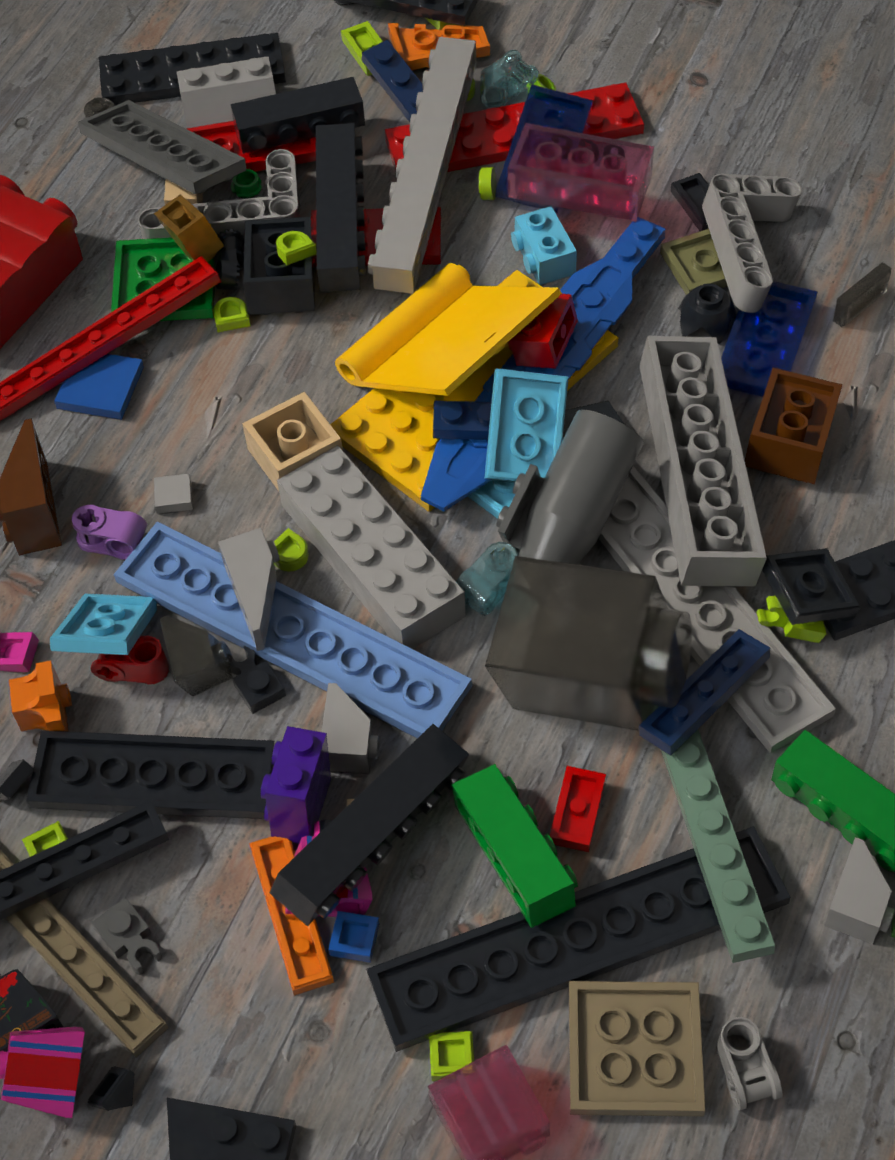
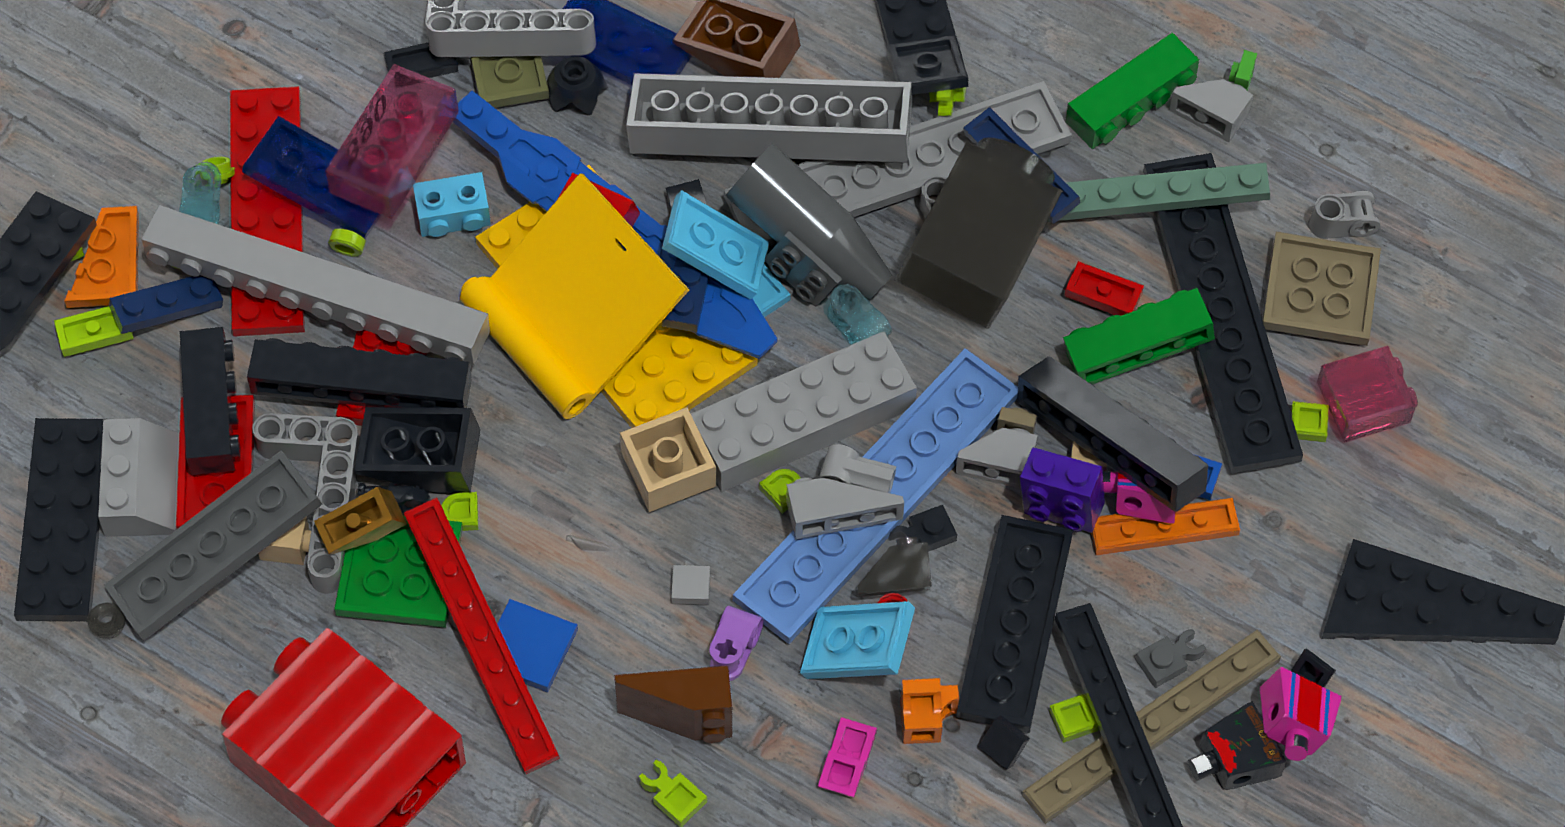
camera: 85 degrees left, 5 degrees up
(295, 246) = (420, 419): lime tile -> none
(295, 588) = (847, 466): none -> light grey piece
(389, 741) = (1017, 418): none -> dark tan plate

